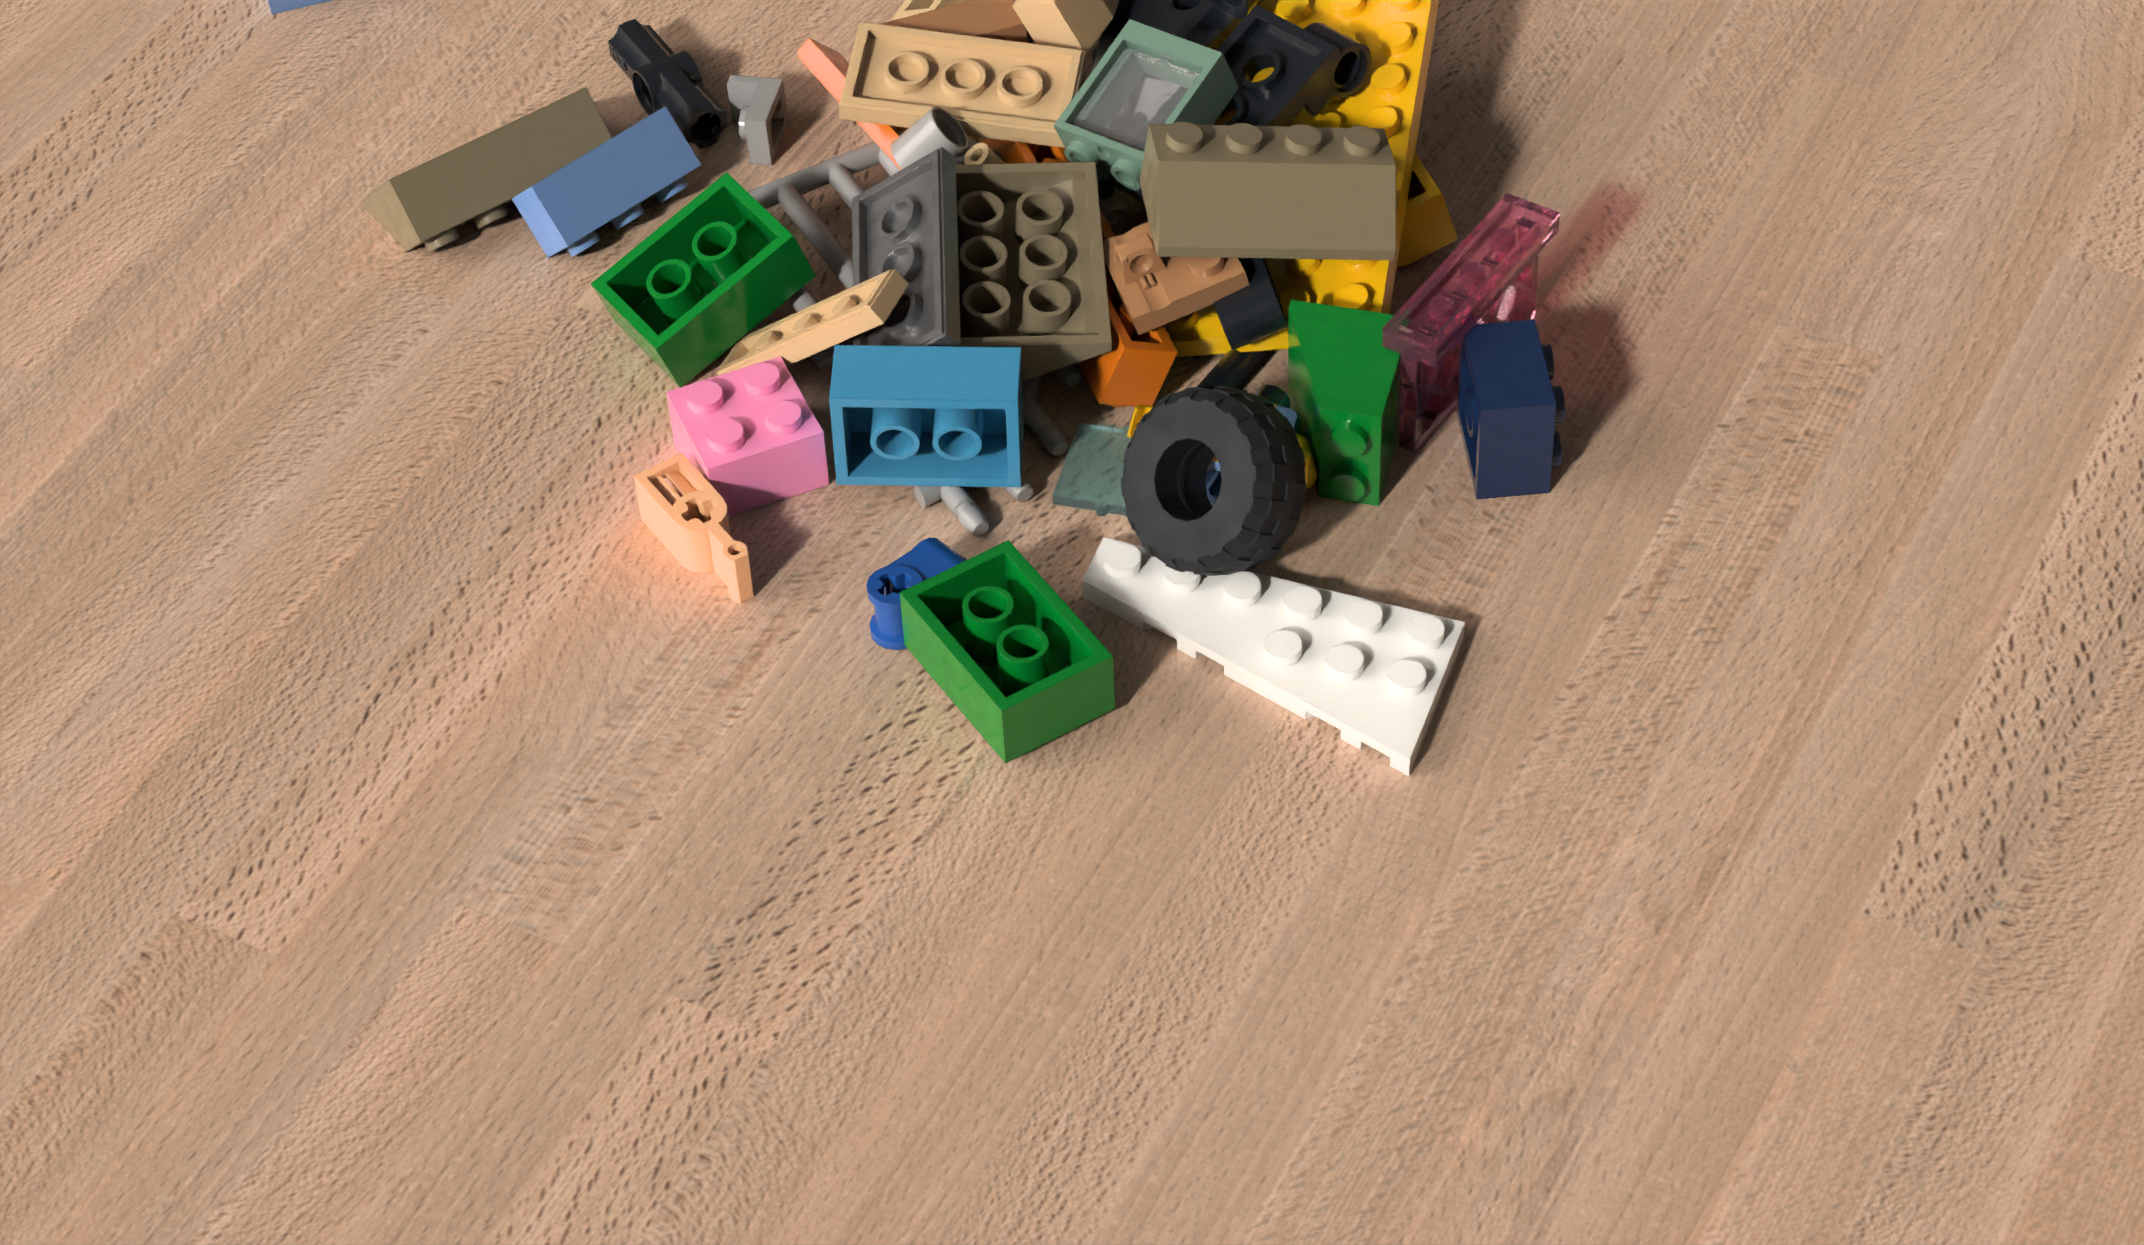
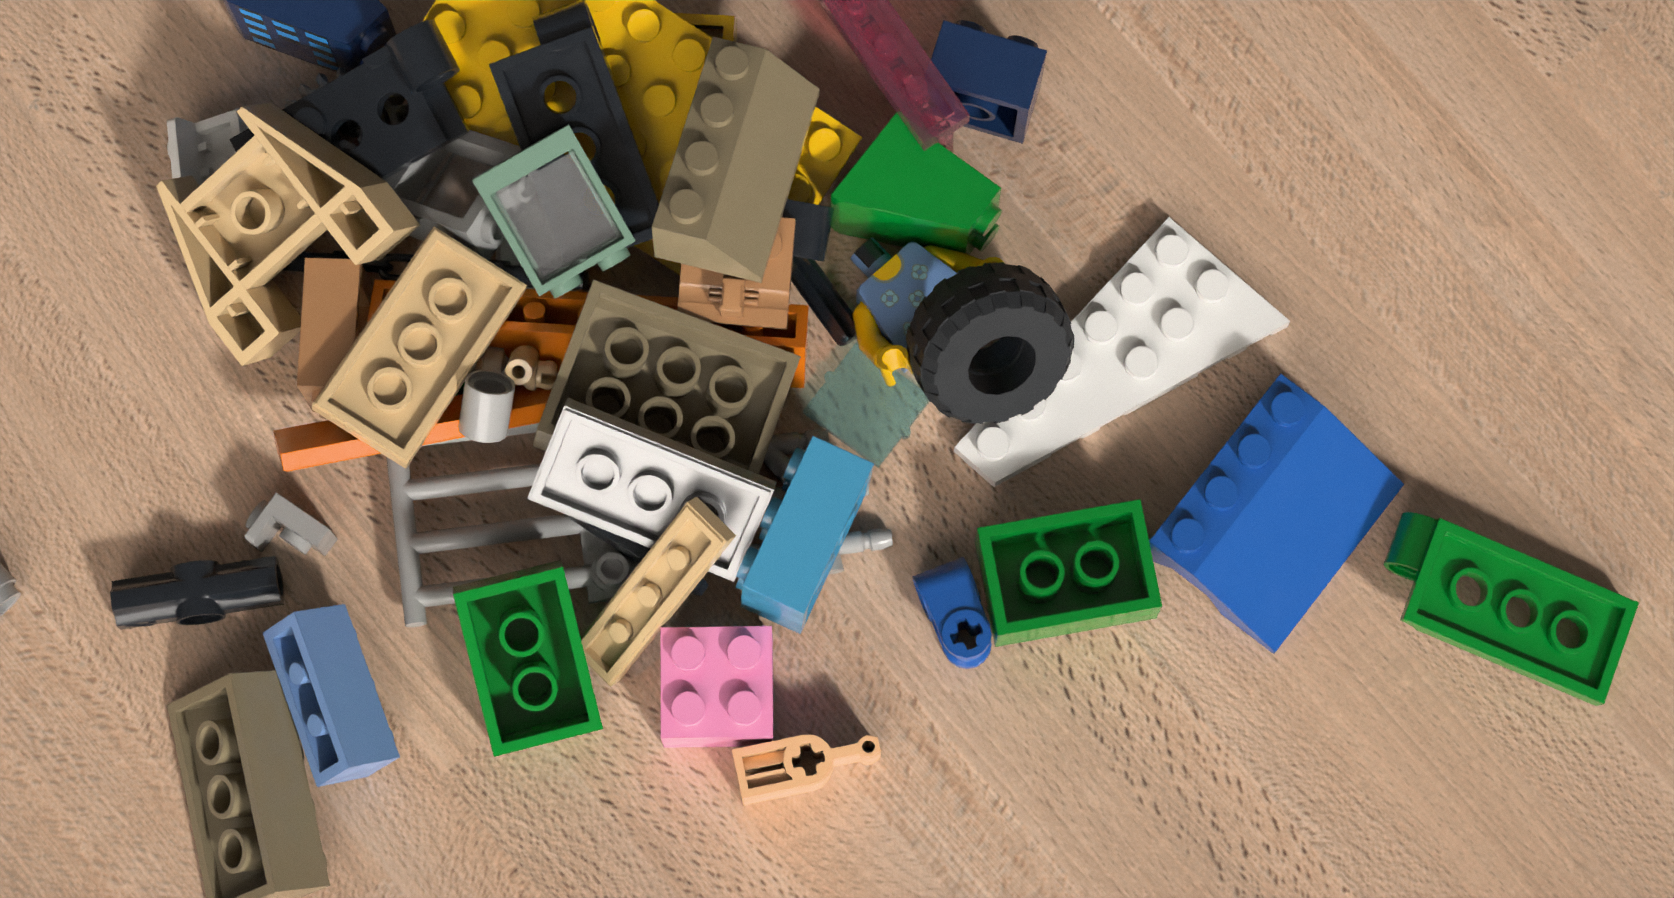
camera: 70 degrees left, 30 degrees up
(1176, 810) = (1276, 513): none -> blue piece
(1208, 960) = (1440, 552): none -> green hinge

